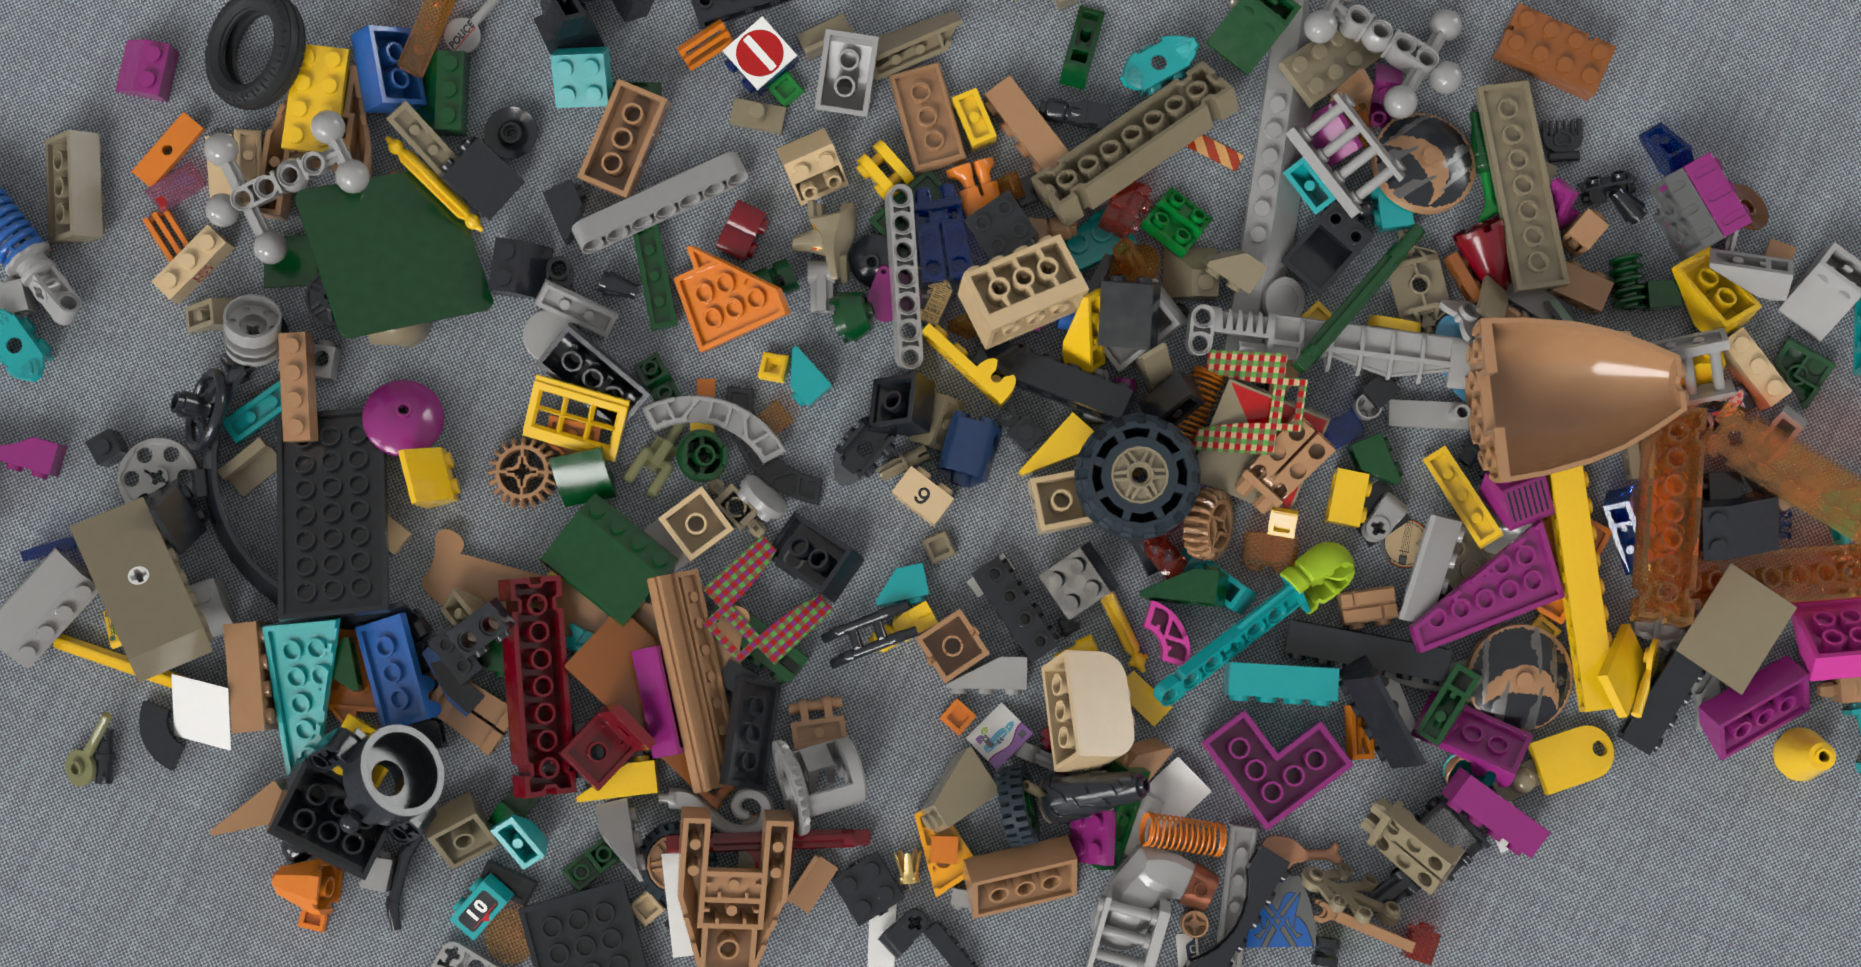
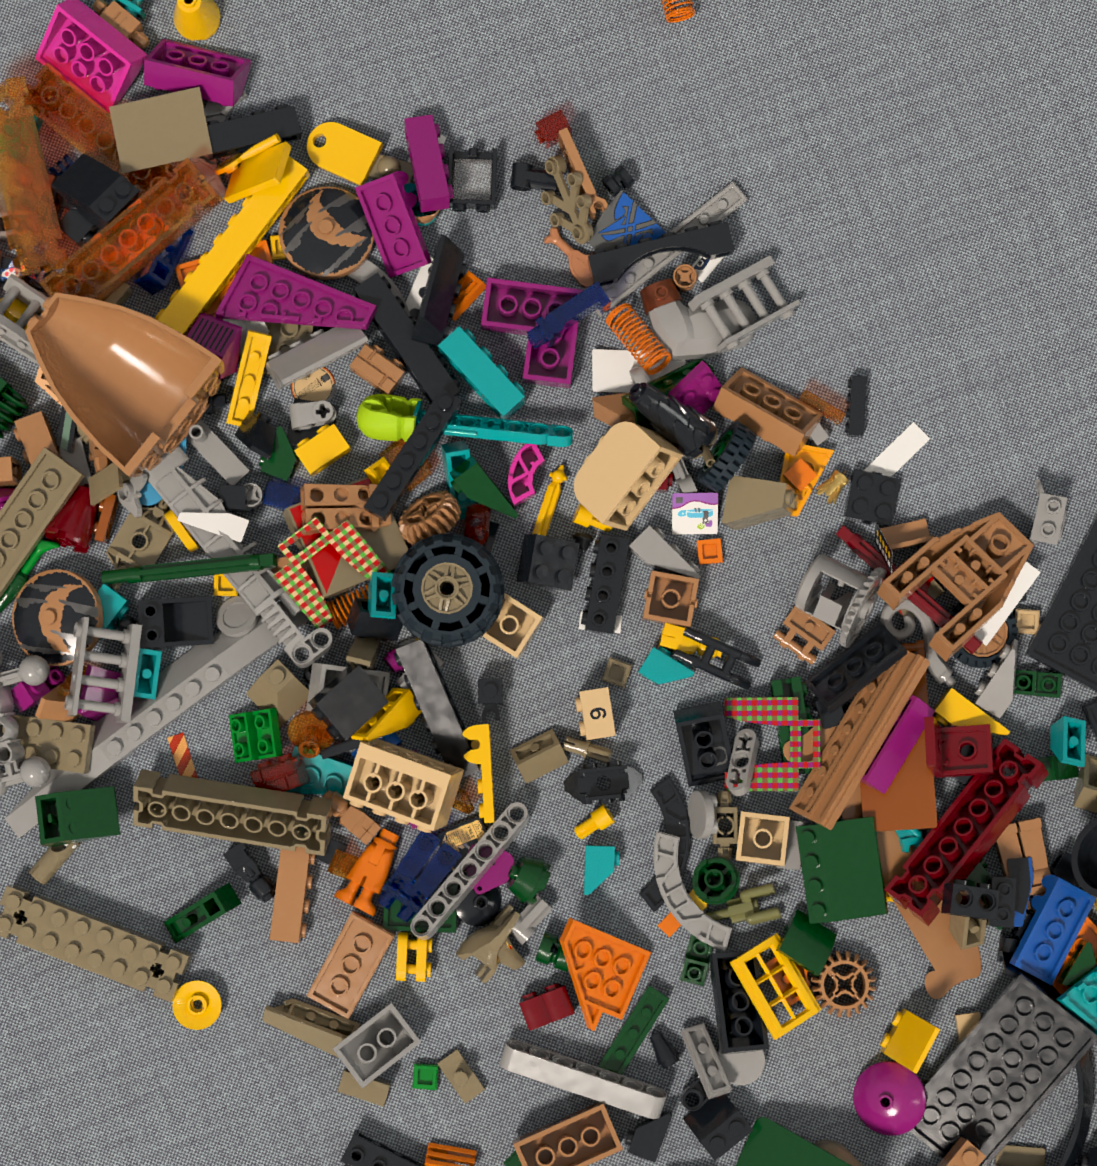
camera: 140 degrees left, 0 degrees up
(759, 56) = (422, 1115): piece -> none
(759, 565) = (746, 772): none -> light grey beam
(774, 367) = (611, 895): yellow tile -> none
(776, 417) = (642, 860): clear orange tile -> none
(812, 166) = (458, 1005): tan slope -> none
(820, 853) = (883, 547): none -> black sticker
(840, 417) = (599, 819): none -> yellow piece
(901, 935) = (878, 448): black piece -> none
(902, 404) = (552, 788): black slope -> none
(969, 449) = (537, 715): dark blue cylinder -> none
(974, 119) = (321, 933): yellow panel -> none
(979, 924) = (817, 403): none -> clear orange tile
(1002, 226) = (375, 840): black brick -> none
(1061, 445) = (472, 661): yellow slope -> none
(1144, 701) = (579, 448): yellow tile -> none
(1178, 53) = (144, 846): teal piece -> none
(1186, 419) = (379, 596): none -> teal slope
(1236, 267) = (248, 665): dark tan slope -> none
(1258, 800) = (568, 314): none -> clear blue hips
(1271, 560) = (413, 455): none -> black plate
(1375, 354) = (212, 522): none -> white sticker
(1410, 844) = (500, 194): dark tan hips -> none
(1411, 459) = (257, 434): none -> black slope
(1449, 703) = (388, 257): dark green slope -> none

